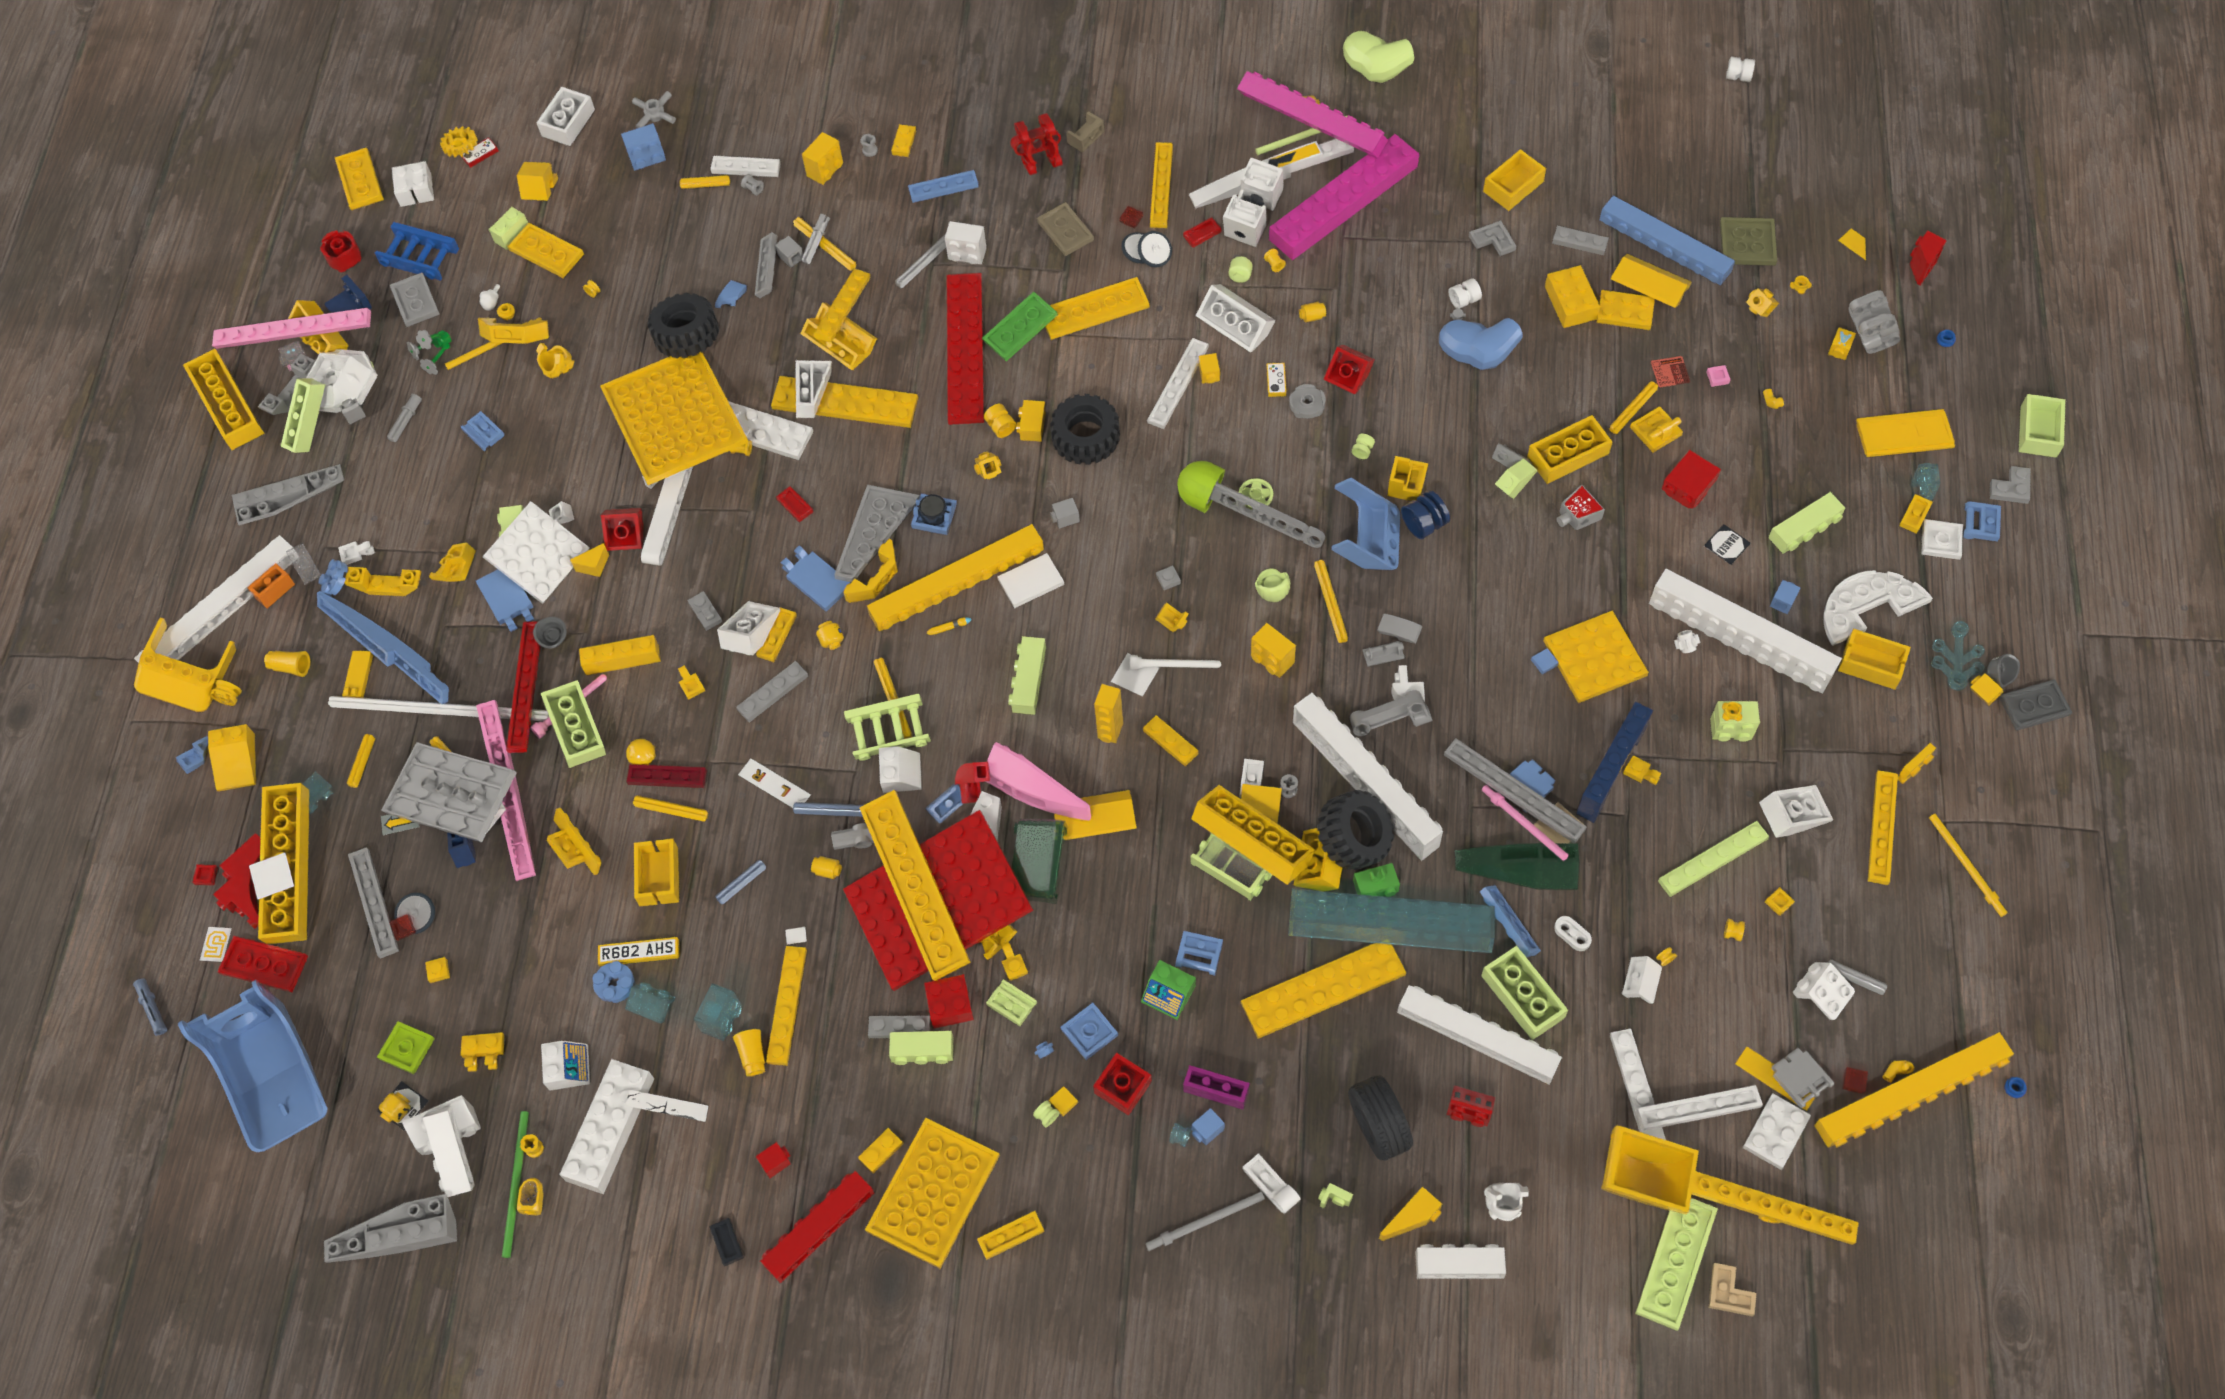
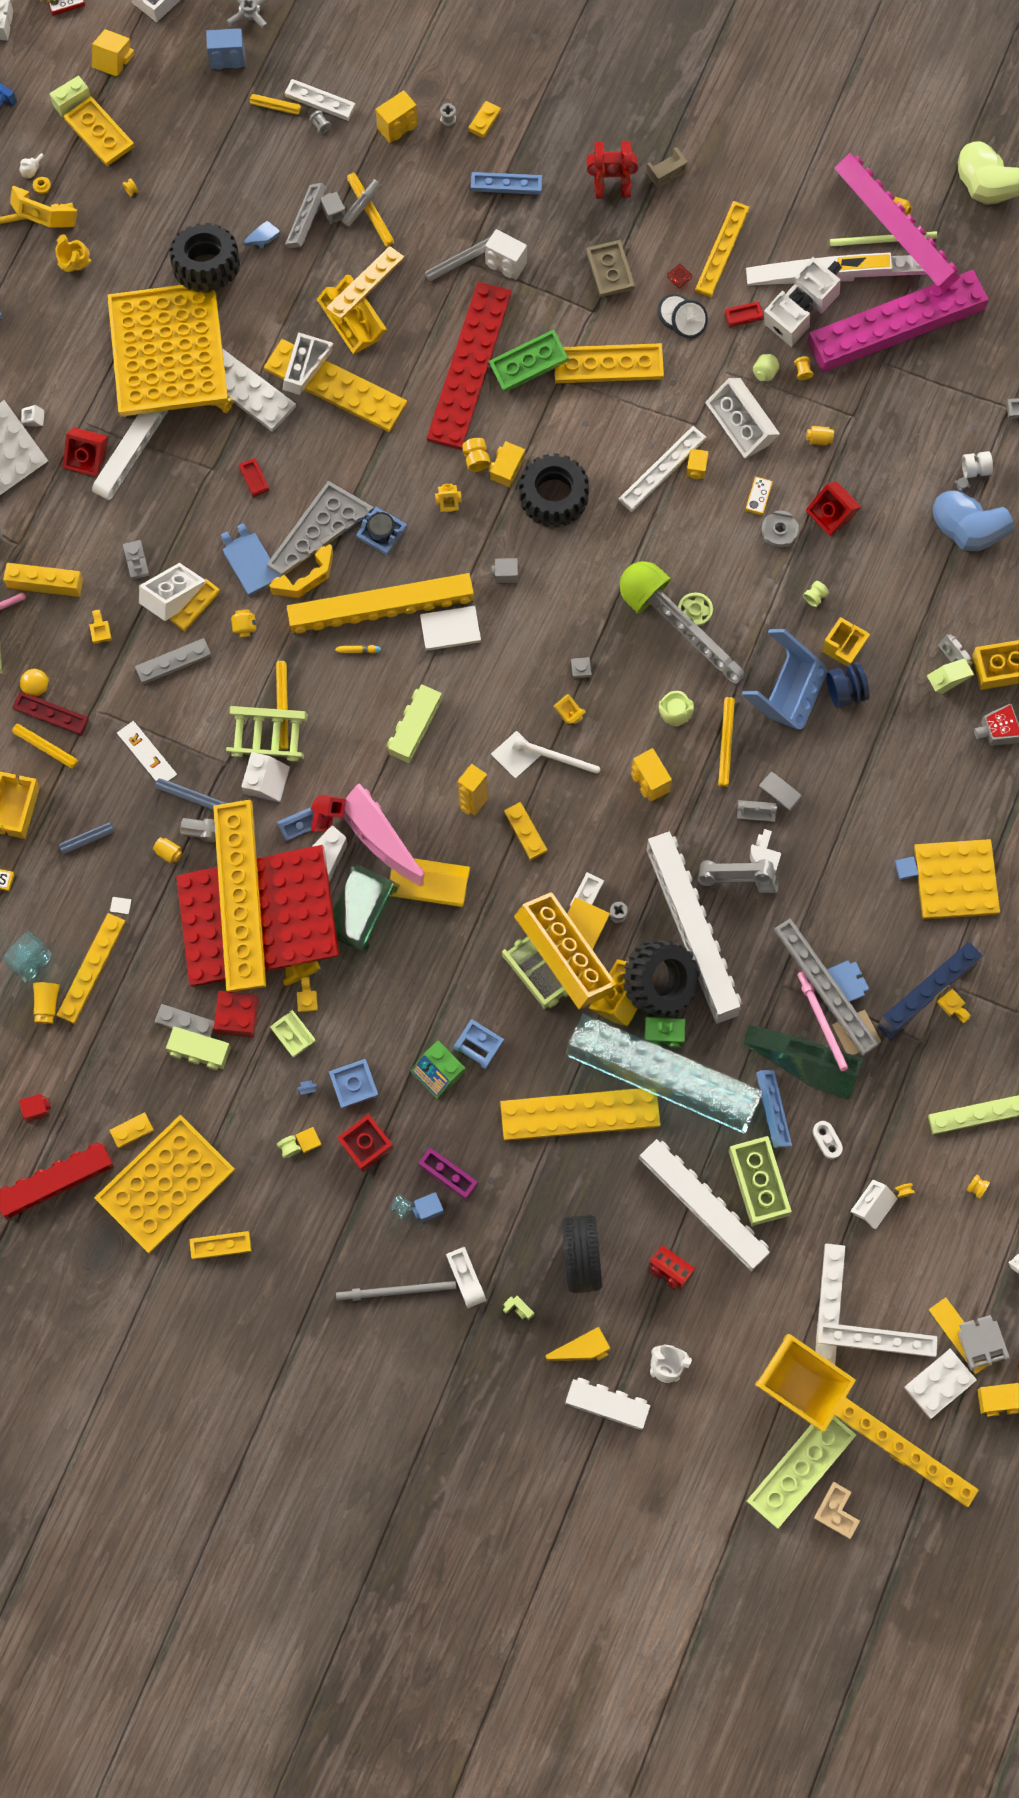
camera: 15 degrees right, 10 degrees up
(591, 561) = (46, 475): yellow slope -> none

